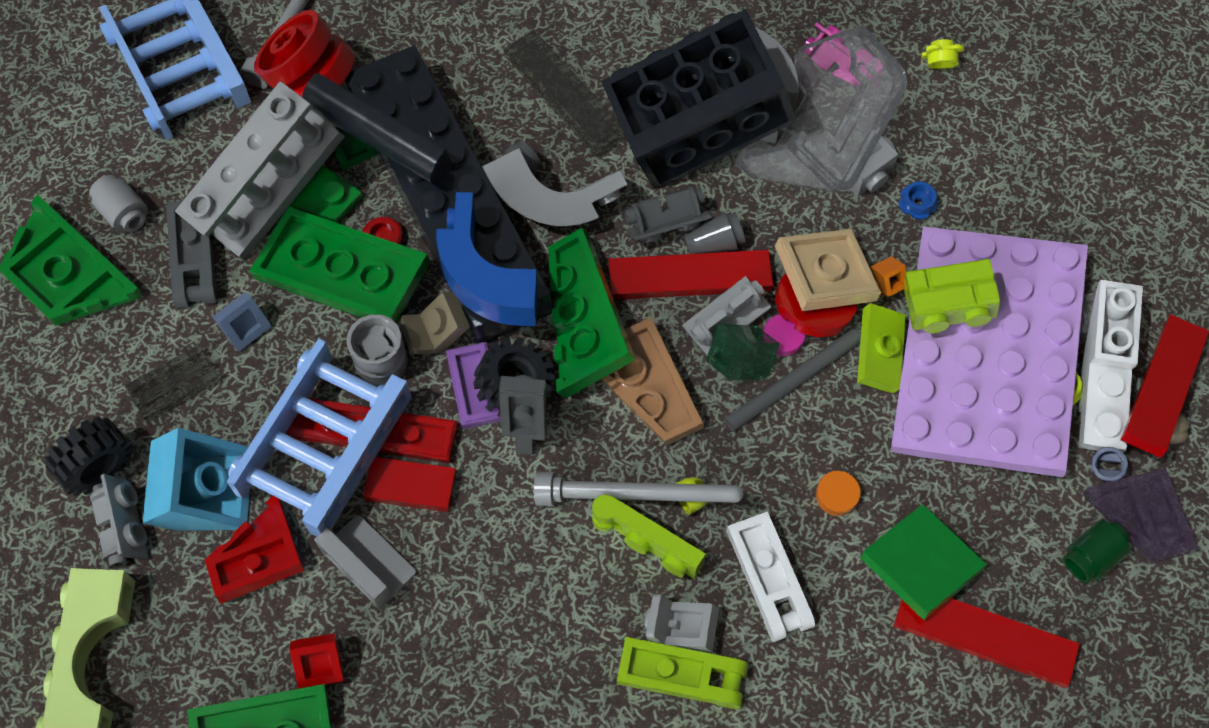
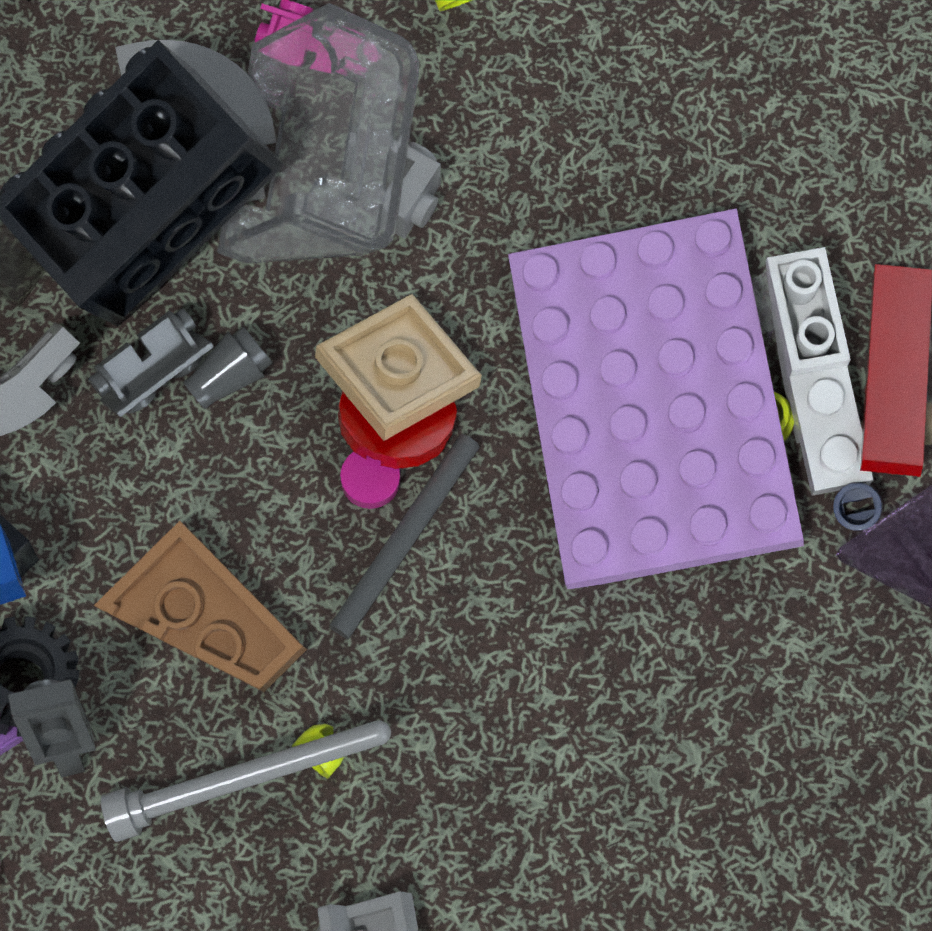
camera: 20 degrees left, 5 degrees up
(585, 316) = (96, 561): green wing -> none
(645, 535) = (279, 829): lime plate -> none
(687, 274) = (211, 436): red tile -> none
(737, 305) = (283, 479): light grey hinge -> none
(742, 352) = (322, 524): clear green panel -> none
(770, 575) = (462, 821): white plate -> none
(837, 493) = (516, 674): orange tile -> none
(881, 348) = (508, 450): lime plate -> none
(891, 269) = (476, 340): orange piece -> none
(918, 191) = (490, 203): blue plate -> none
(923, 561) = (657, 728): green tile -> none
(951, 295) = (577, 349): lime brick -> none
(994, 639) = (769, 795): red tile -> none
(1097, 551) = (877, 631): dark green brick -> none

